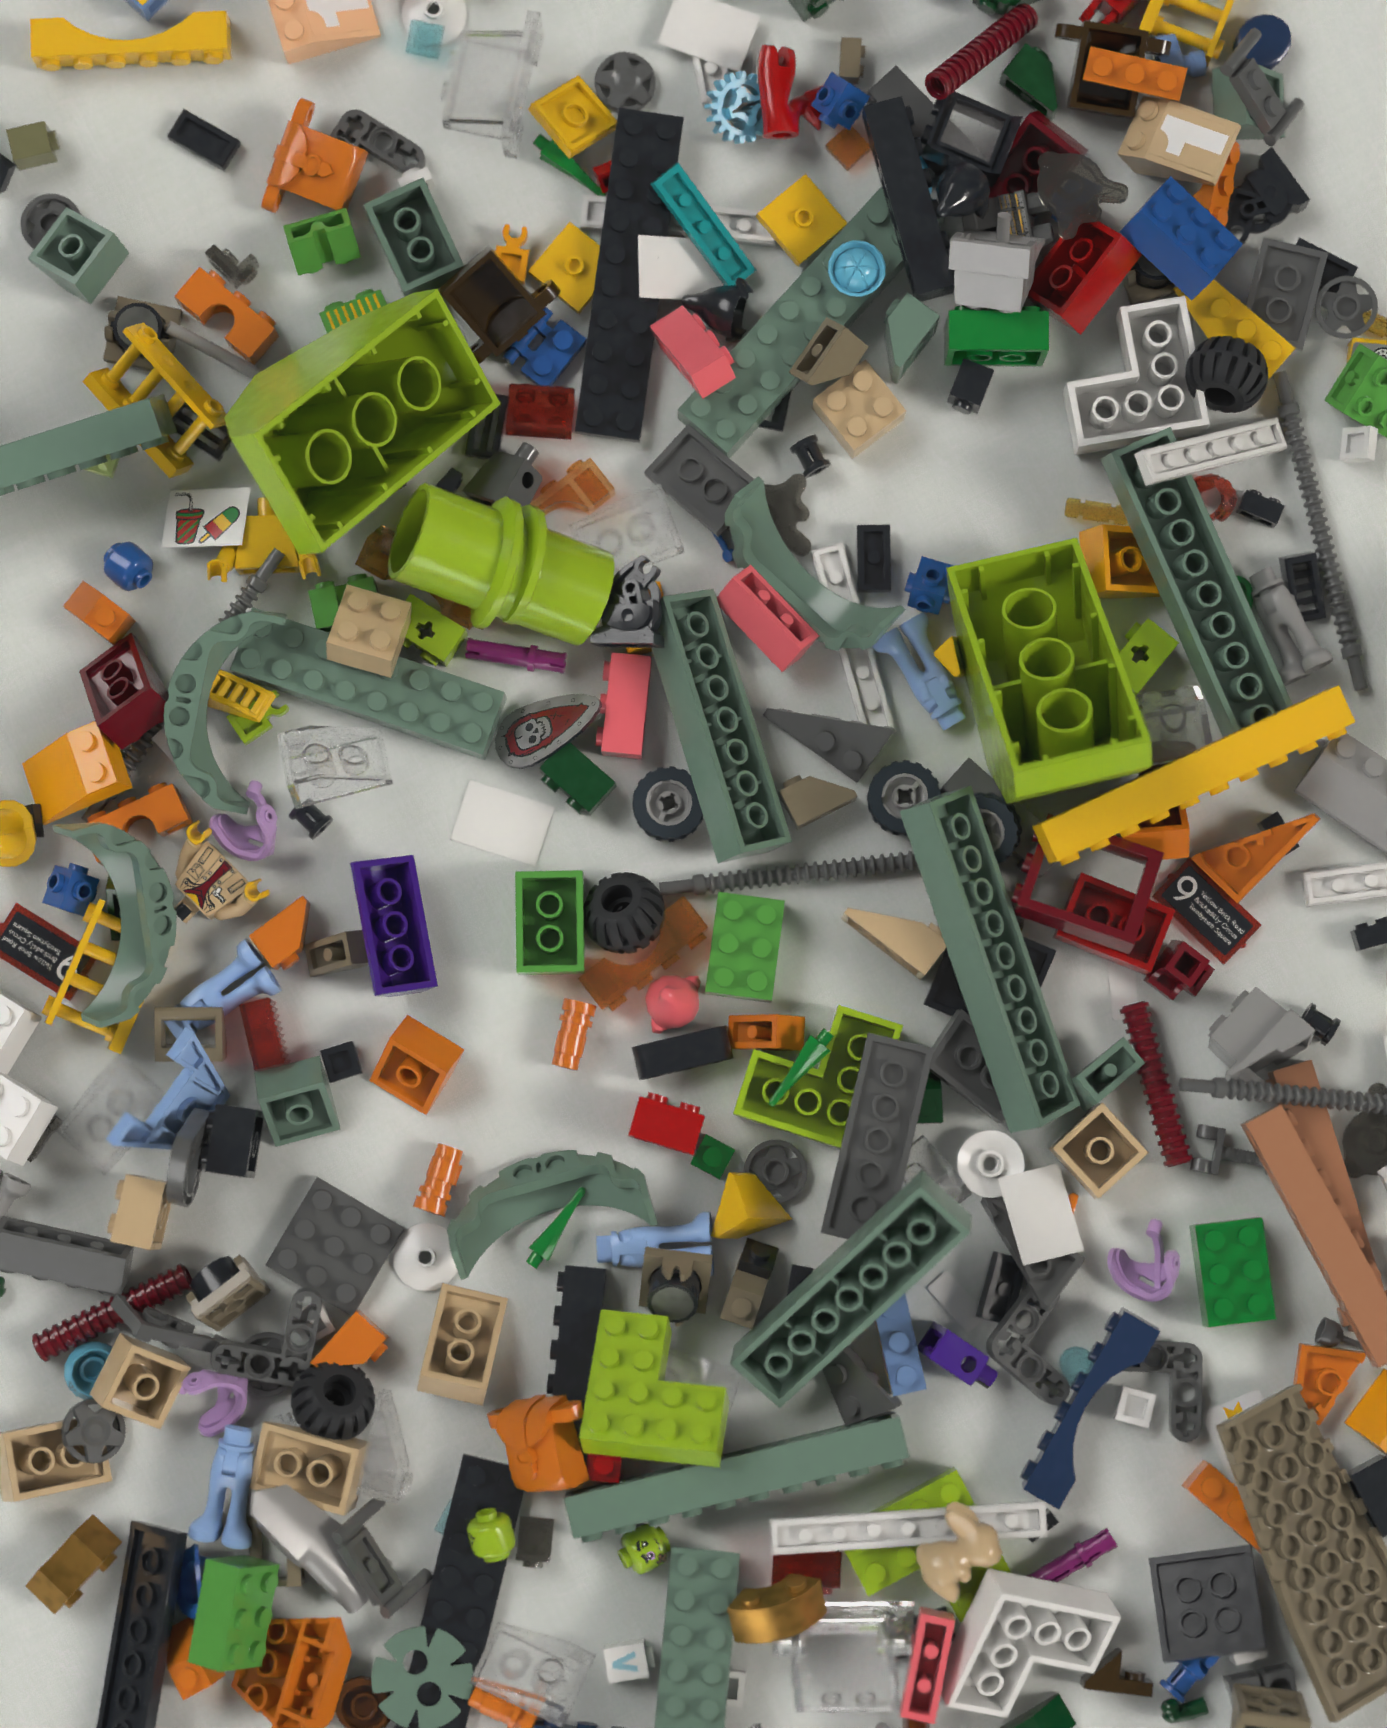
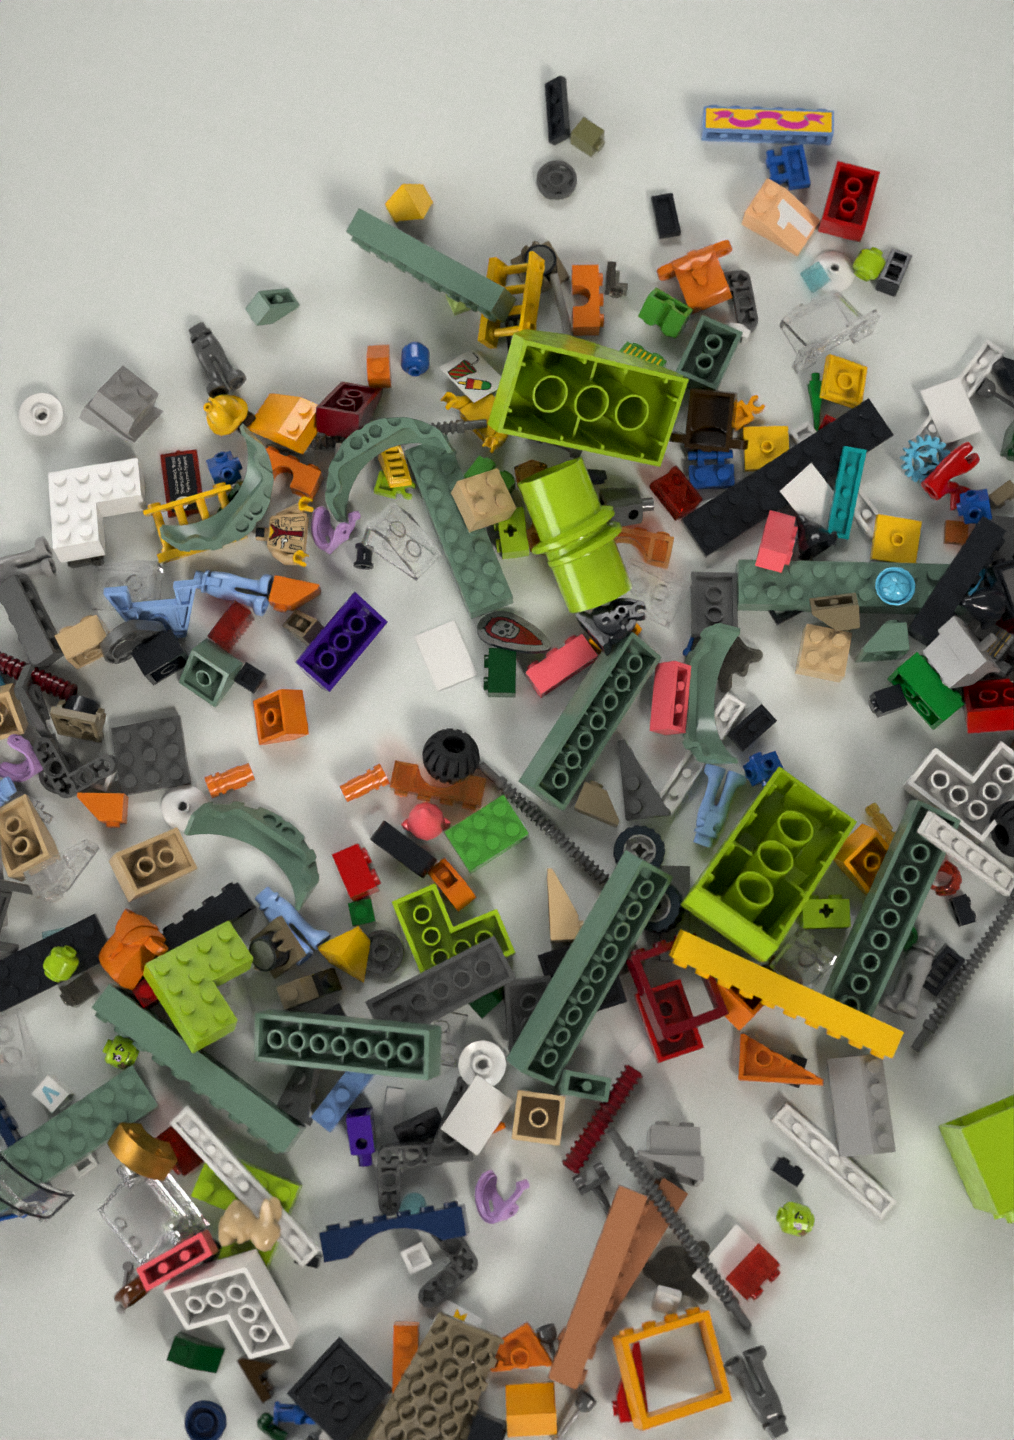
camera: 50 degrees right, 5 degrees down
(79, 255) = (552, 204): sand green slope -> none
(197, 38) = (713, 168): yellow arch -> none
(215, 1051) = (198, 607): dark tan tile -> none
(351, 1396) = (63, 808): black wheel -> none
(482, 453) = (629, 483): black tile -> none
(516, 655) = (543, 596): magenta pin -> none
(545, 1244) = (243, 863): green piece -> none
(550, 922) = (412, 721): bright green brick -> none
(625, 81) = (886, 392): dark grey wheel -> none
(649, 808) = (525, 718): black wheel -> none
(809, 445) = (776, 657): black bush -> none
(811, 1054) = (457, 915): green piece -> none
(950, 656) = (734, 811): yellow slope -> none
(1076, 1558) = (308, 1296): magenta pin -> none
(1179, 969) = (675, 1078): dark red brick -> none
(1207, 911) = (720, 1067): piece -> none
(1232, 1272) = (535, 1249): green brick -> none
(1323, 1025) = (712, 1182): black bush -> none

